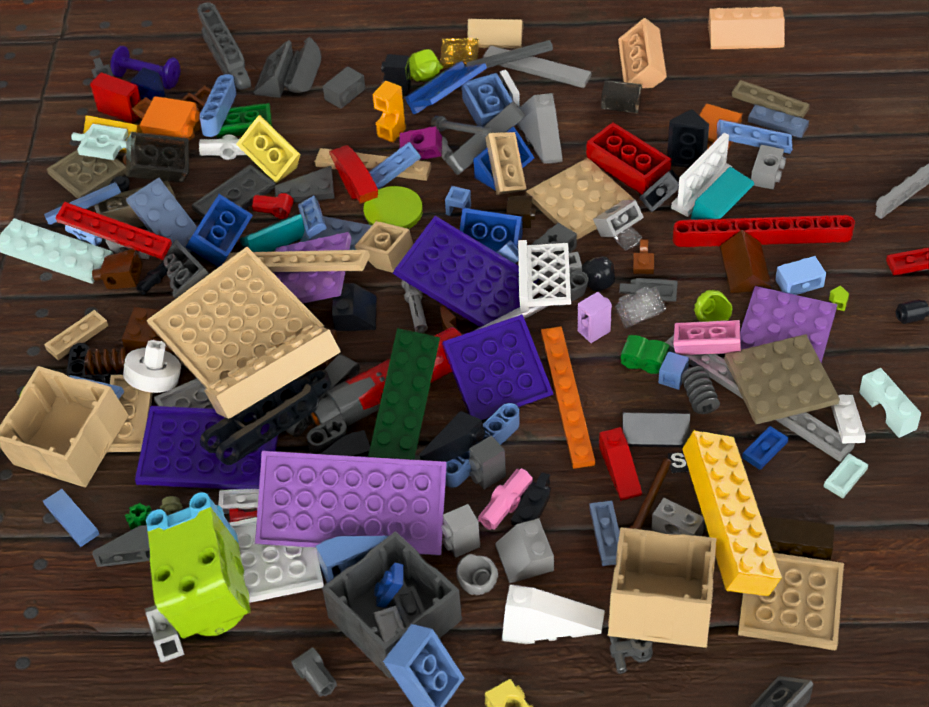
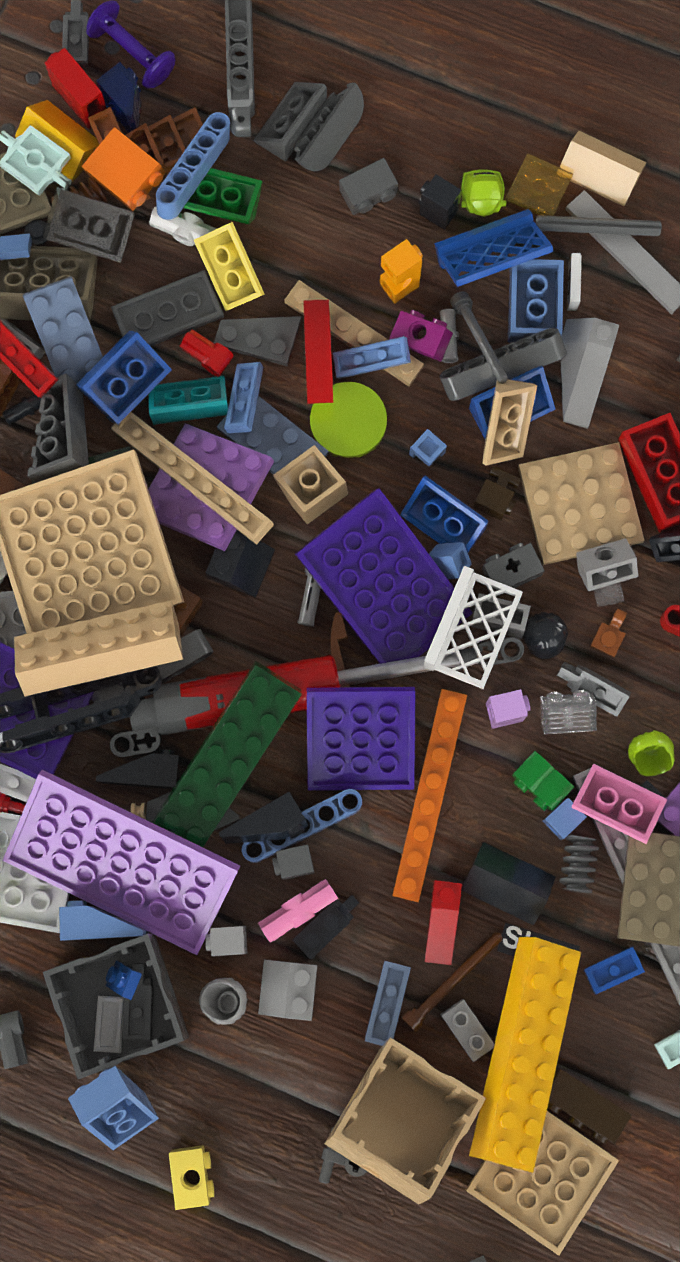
camera: 20 degrees right, 30 degrees up
(542, 615) = (274, 1080): white wedge -> none

